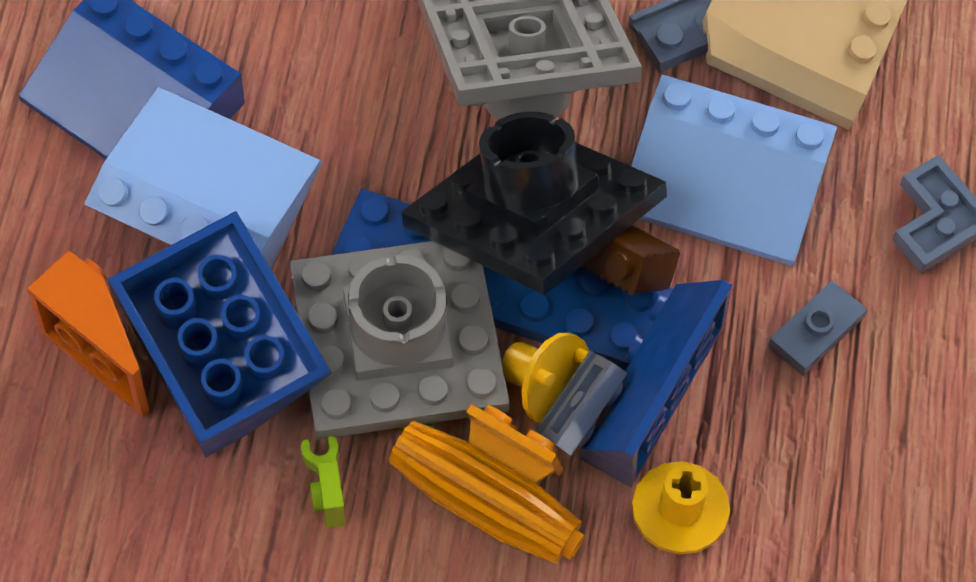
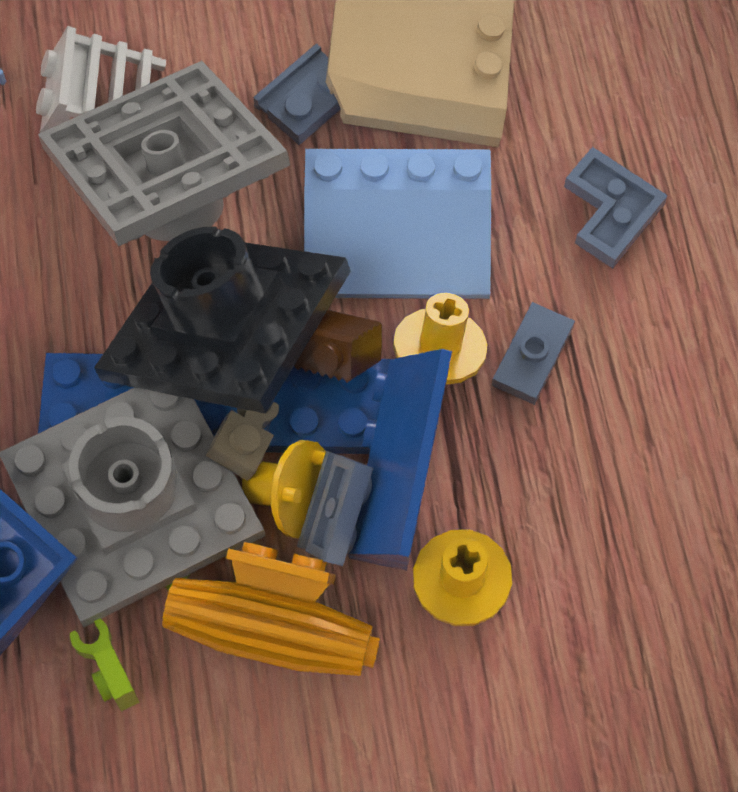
camera: 15 degrees left, 5 degrees up
(516, 317) = (242, 440): none -> dark tan plate
(751, 293) = (446, 327): none -> yellow piece

